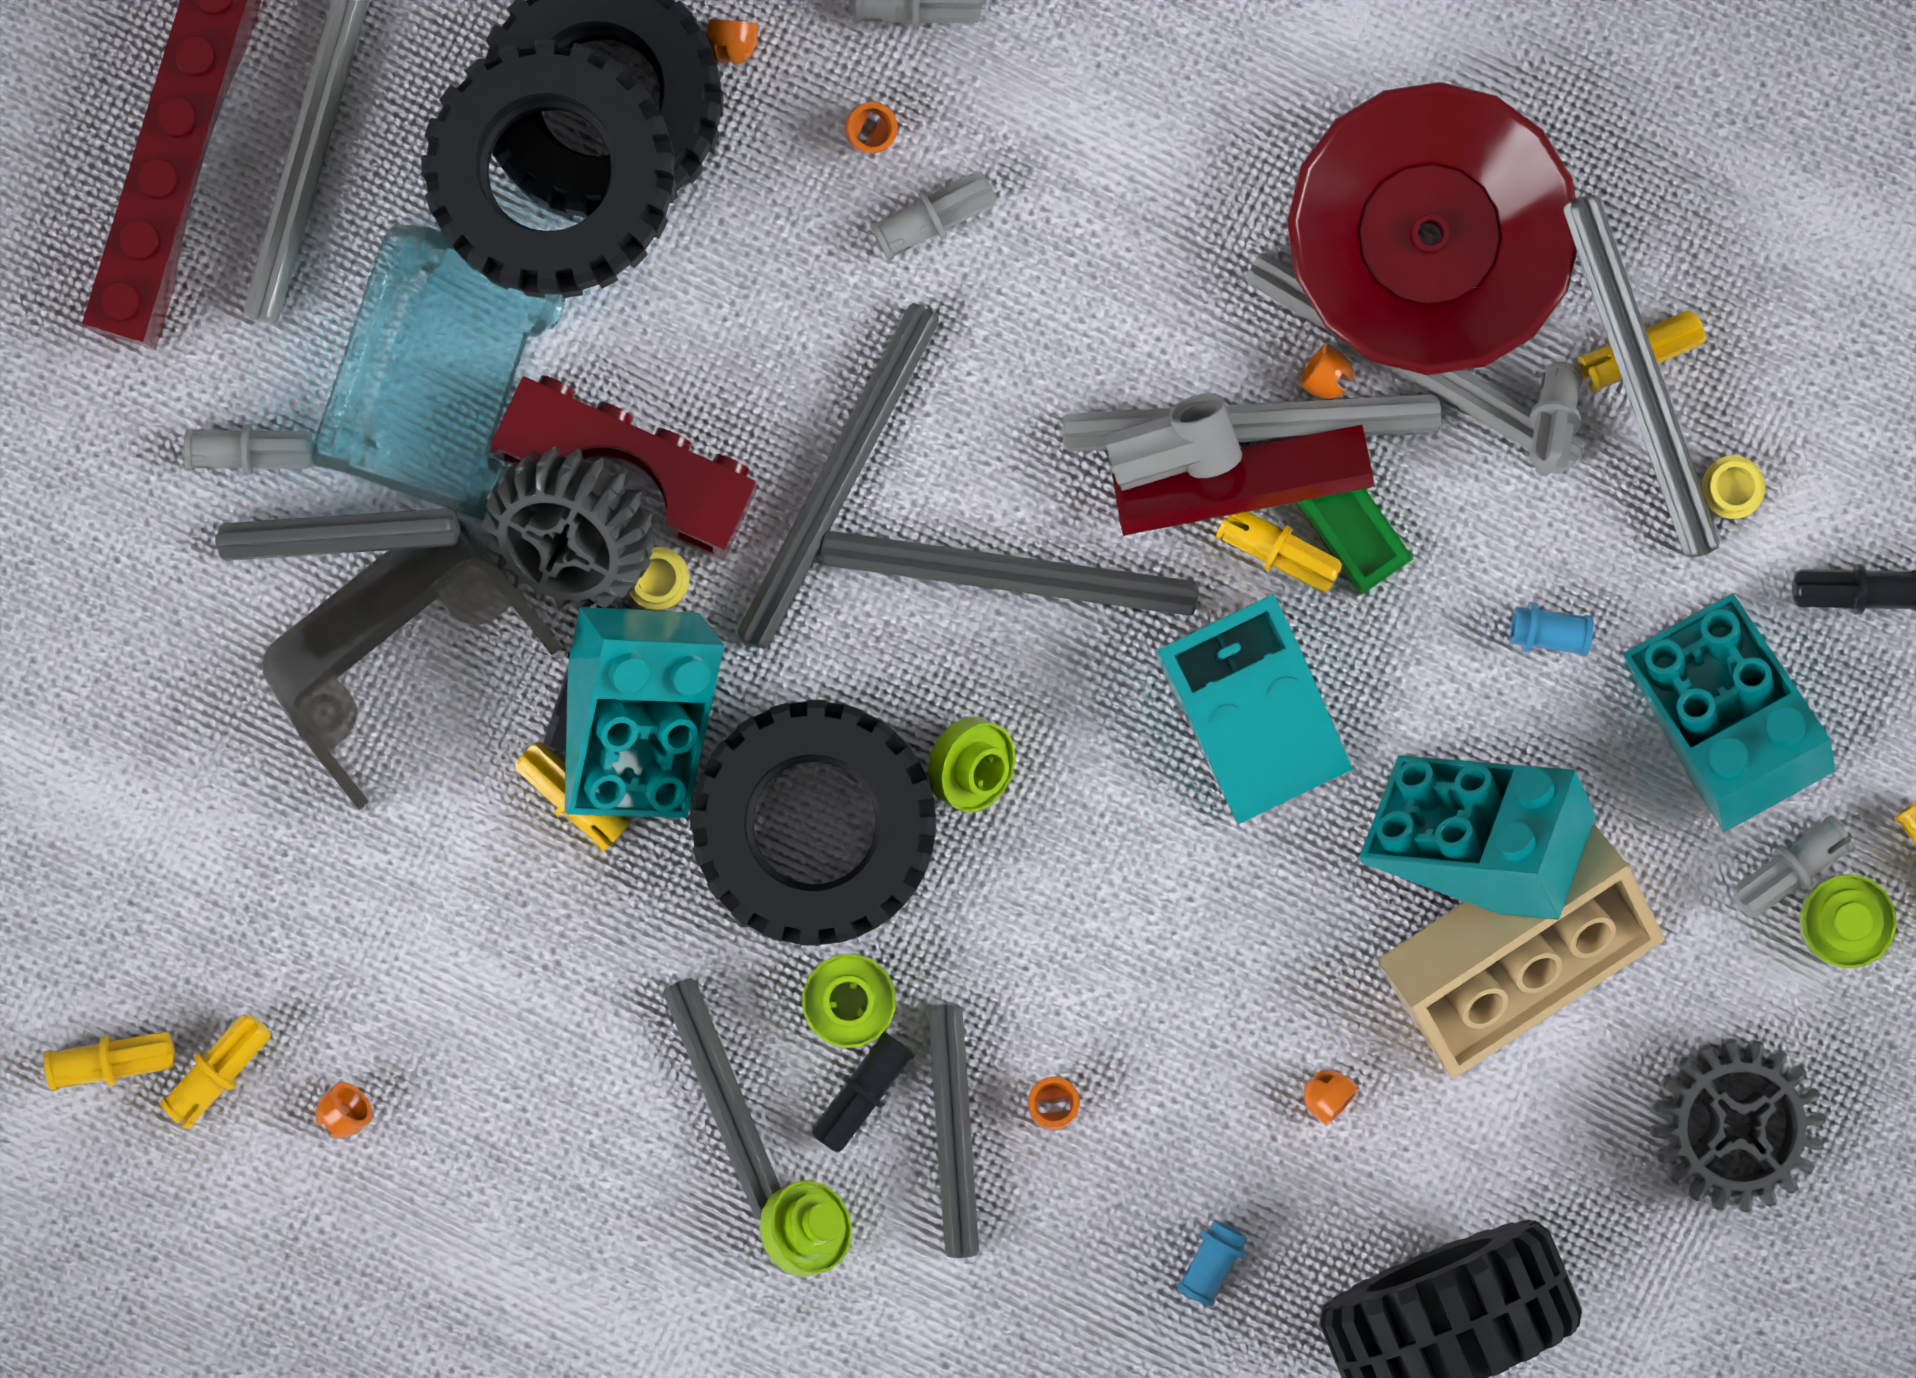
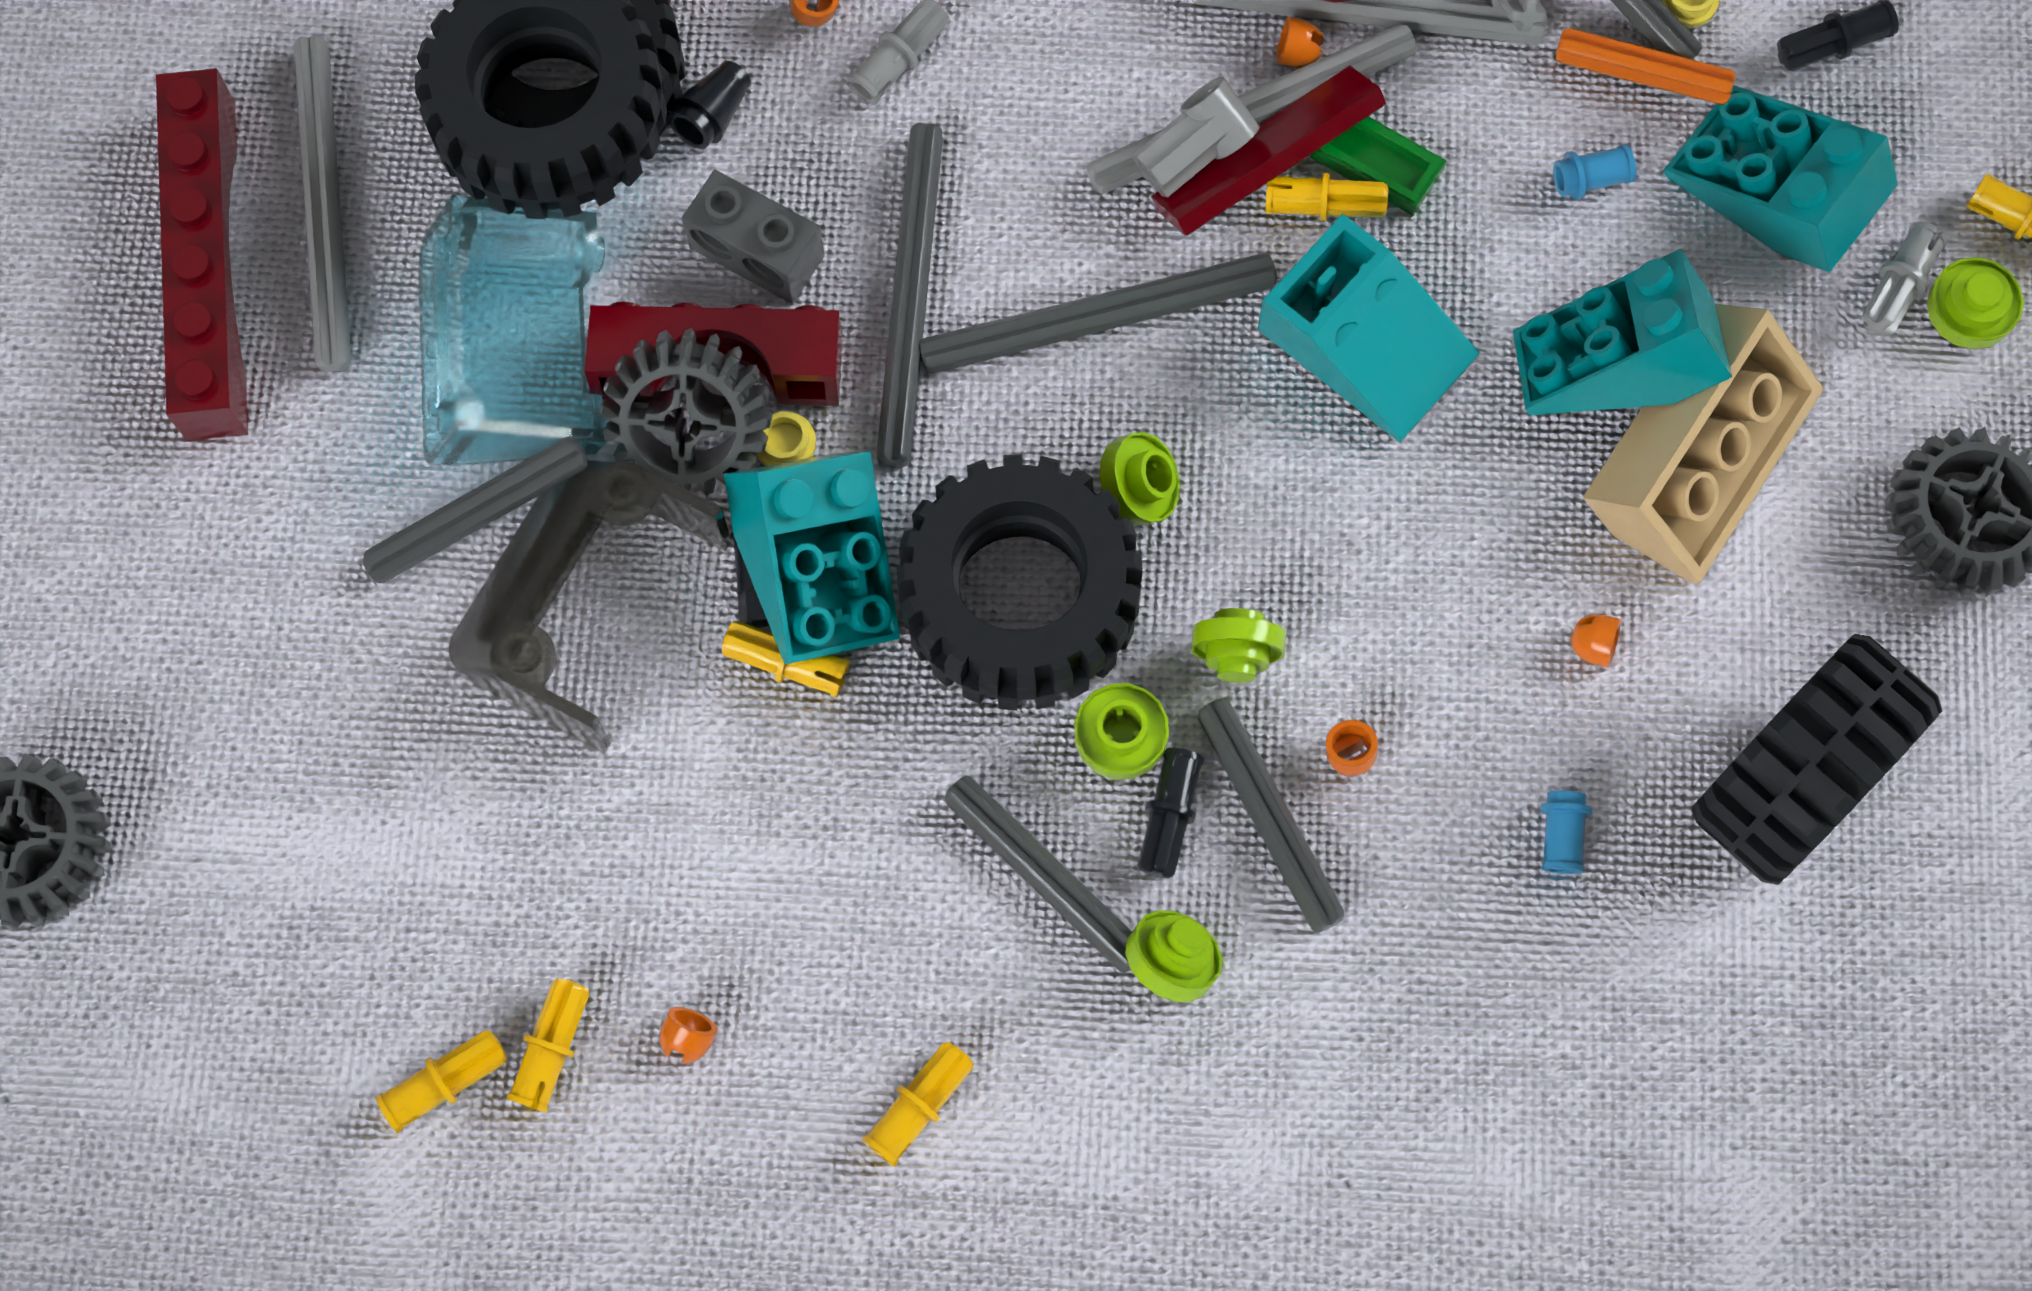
camera: 20 degrees left, 15 degrees down
(248, 449) = (364, 478): light grey axle -> none
(524, 1261) = (919, 1103): none -> yellow axle
(709, 360) = (753, 236): none -> dark grey brick
(724, 198) = (708, 107): none -> black cone
(990, 966) = (1238, 643): none -> lime plate
(1653, 543) = (1645, 66): none -> orange axle

